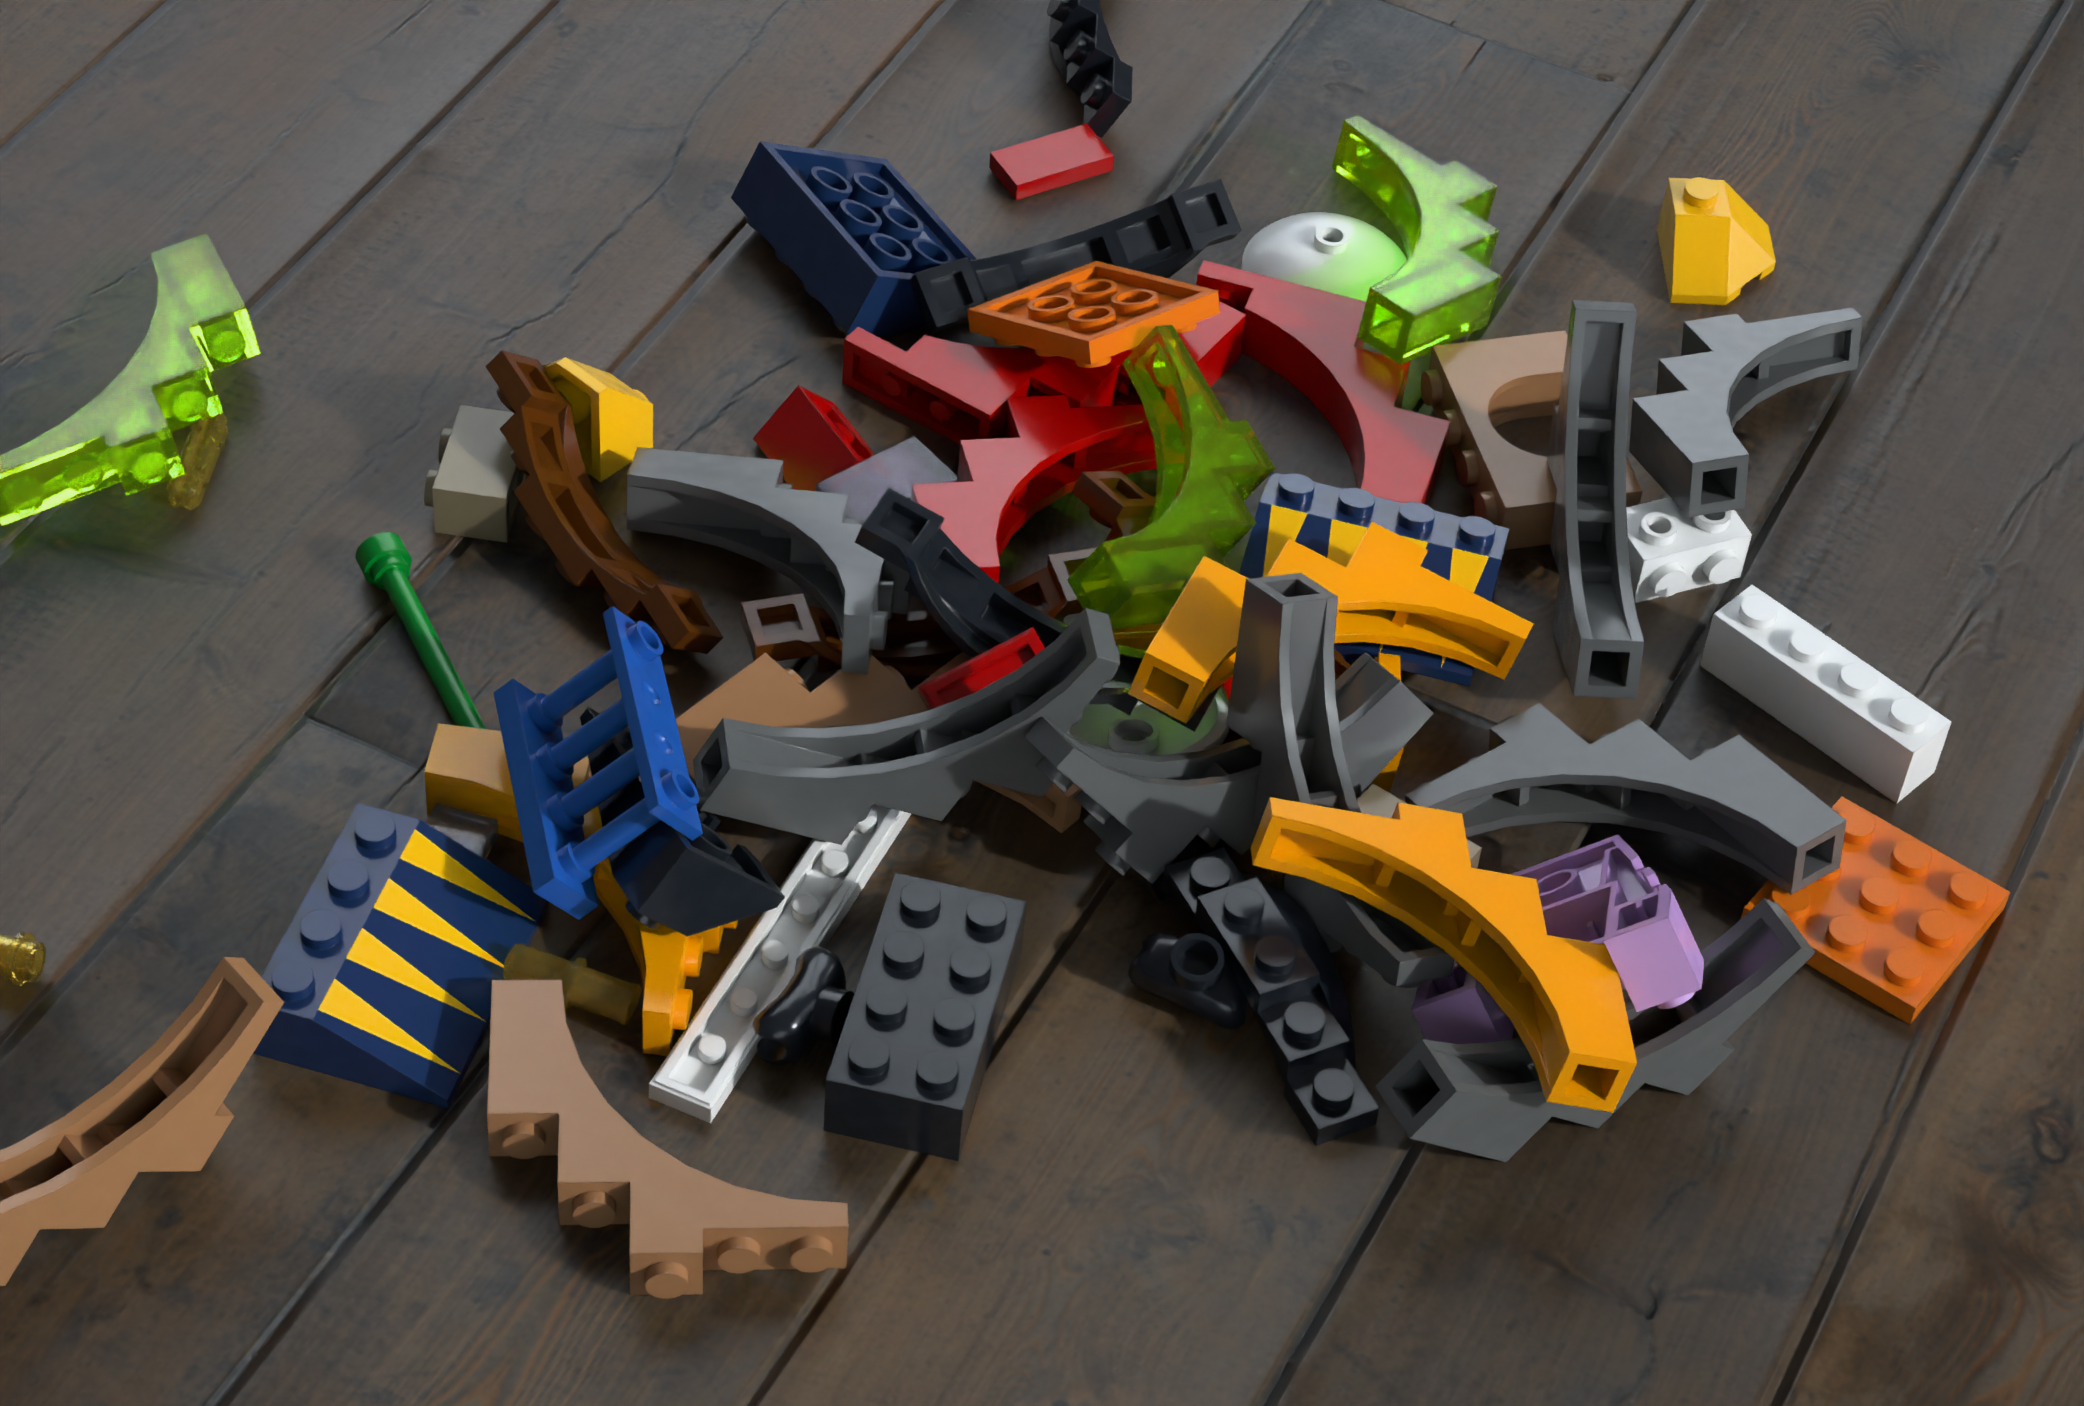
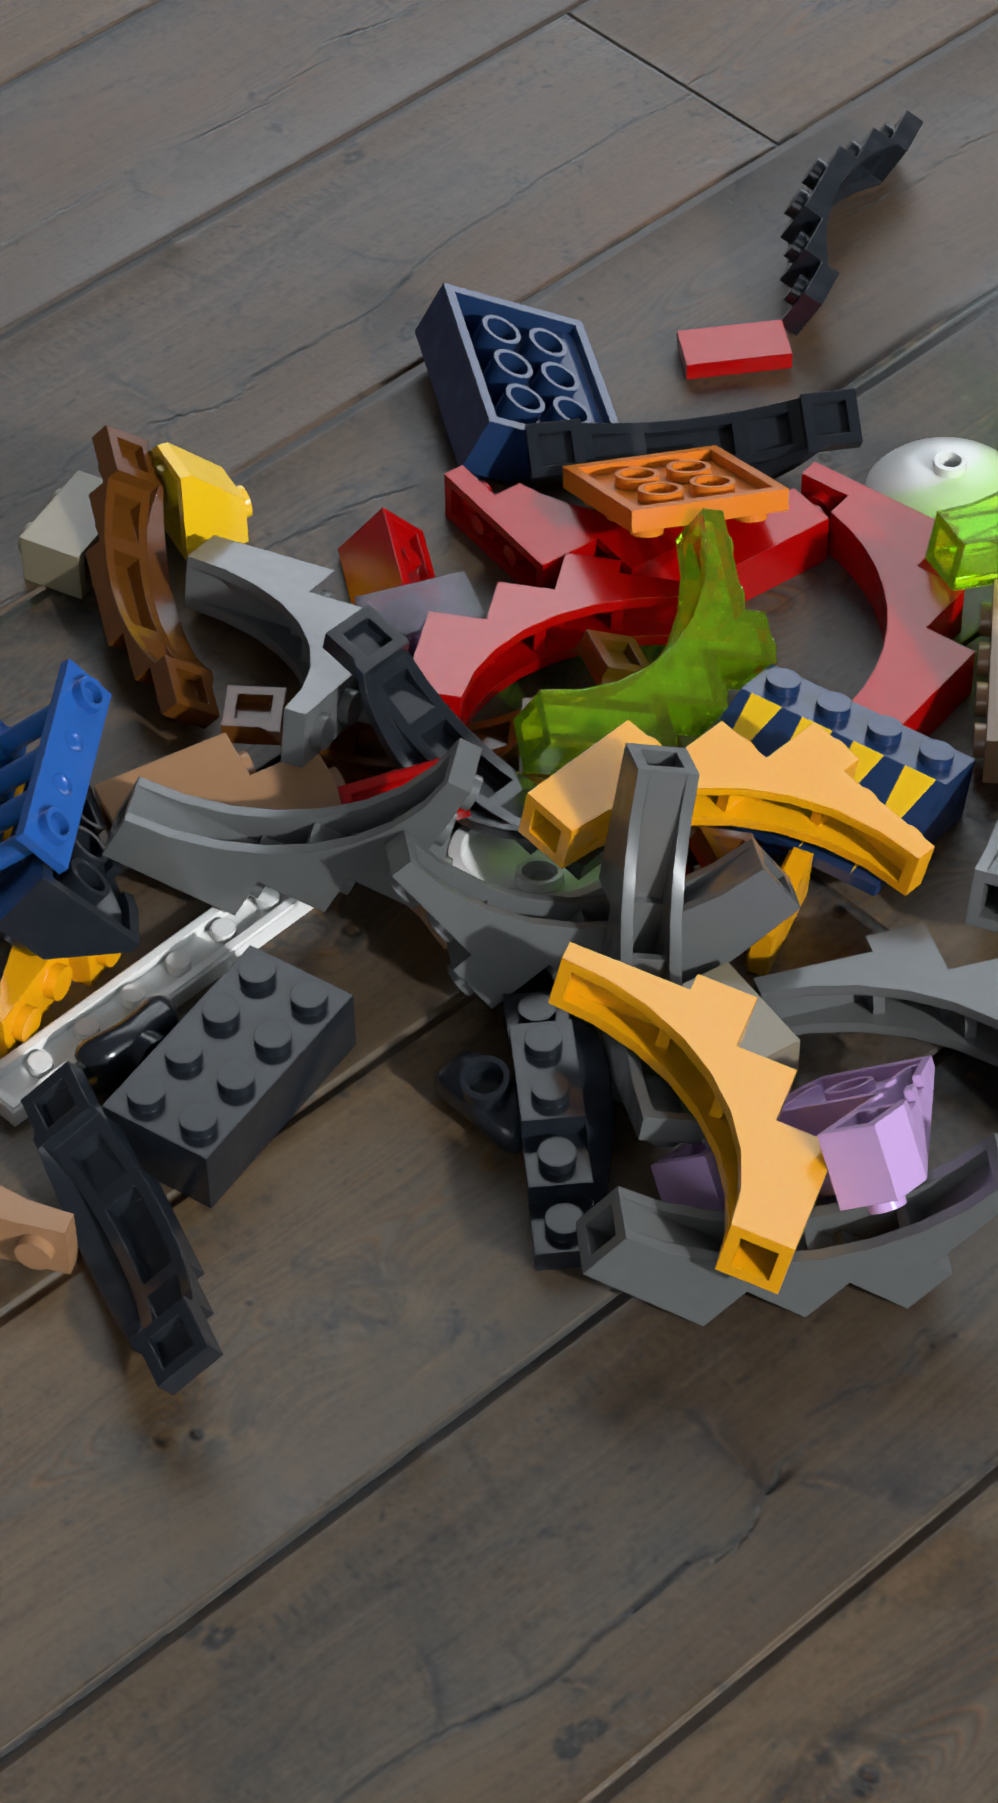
camera: 25 degrees right, 0 degrees up
(906, 1211) = (124, 1230): none -> black piece

